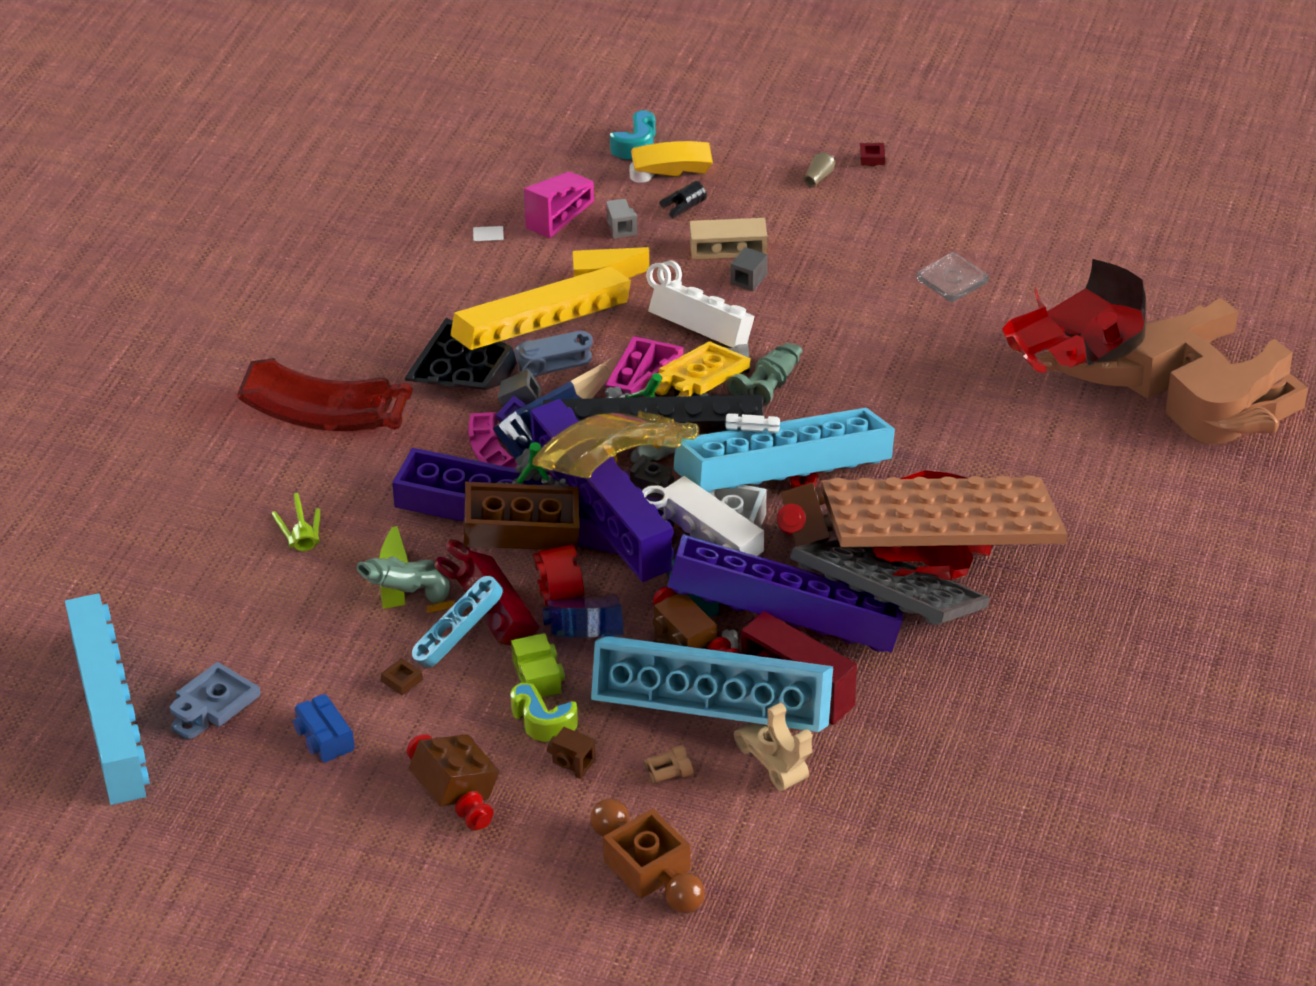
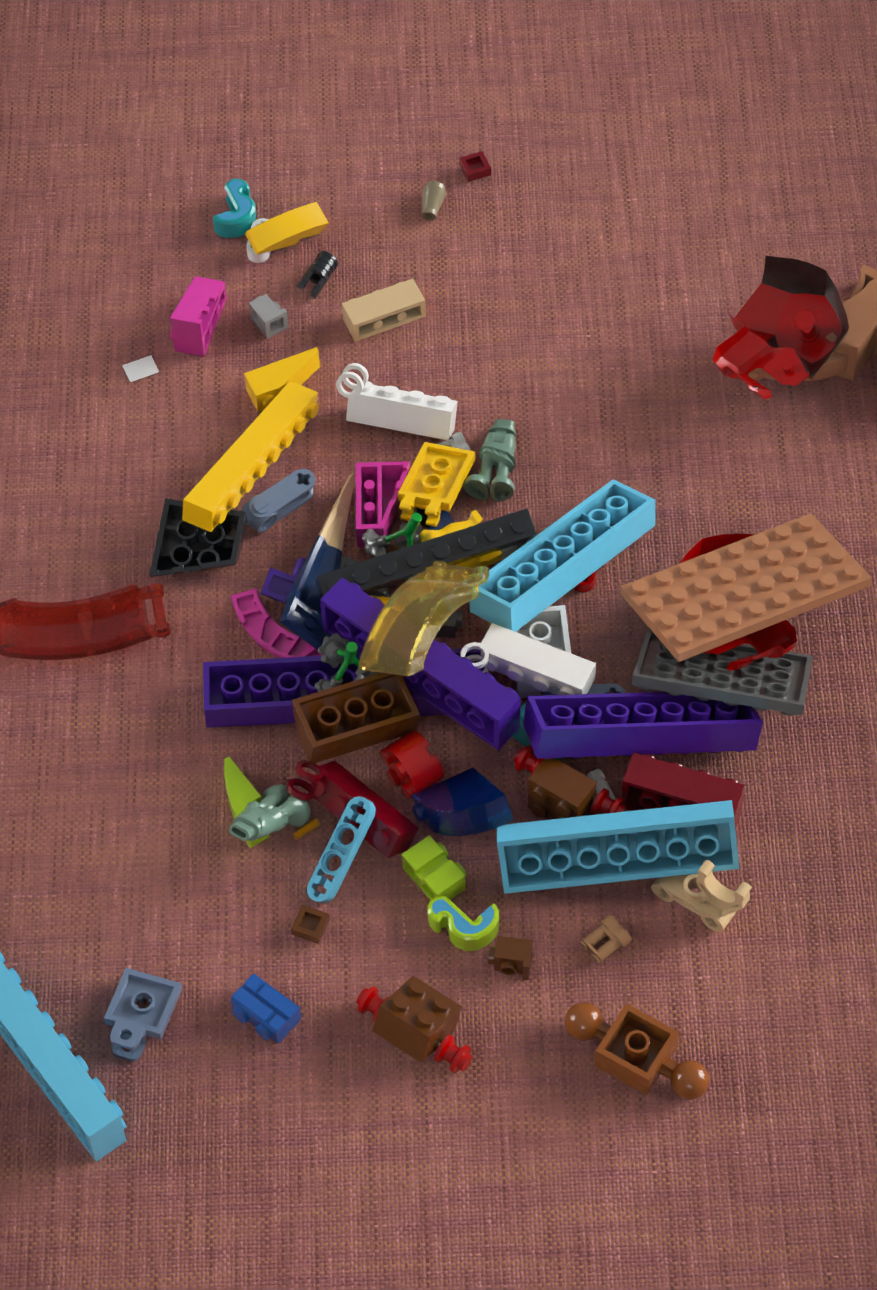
camera: 20 degrees left, 15 degrees up
(303, 535) = (135, 791): lime plant -> none
(521, 386) = (267, 554): dark grey brick -> none
(748, 269) = (420, 341): dark grey brick -> none
(752, 423) = (529, 541): white axle -> none
(803, 515) = (615, 624): reddish brown brick -> none
(952, 277) = (614, 291): clear tile -> none

